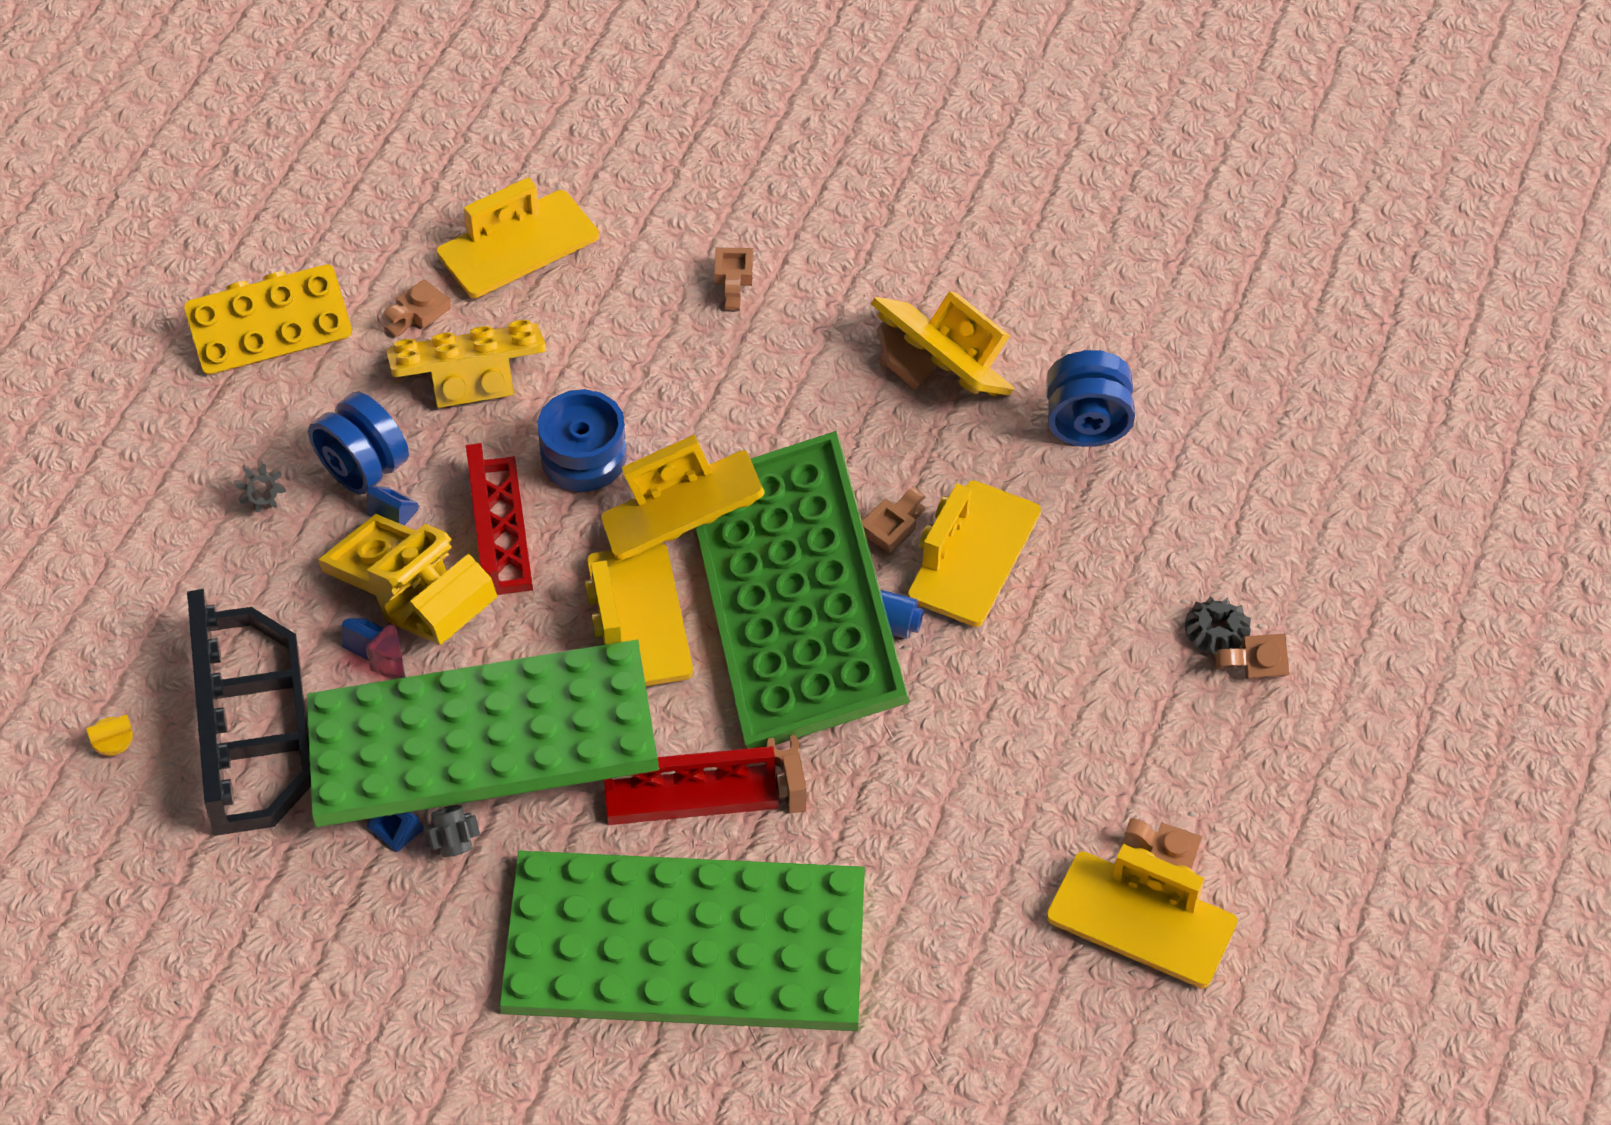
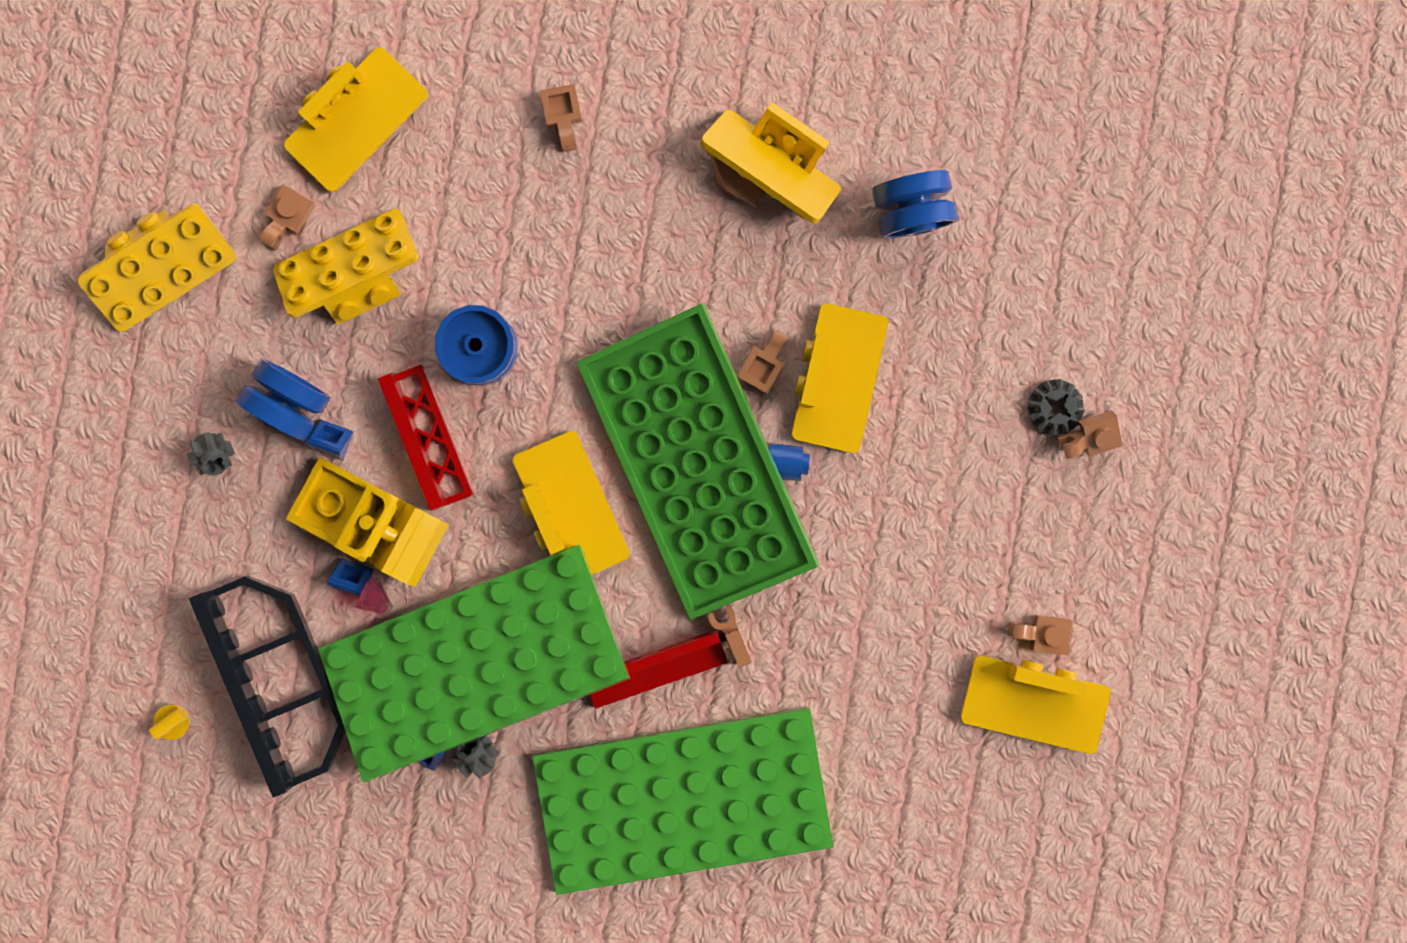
camera: 10 degrees left, 35 degrees up
(677, 493) = (580, 397): yellow bracket -> none

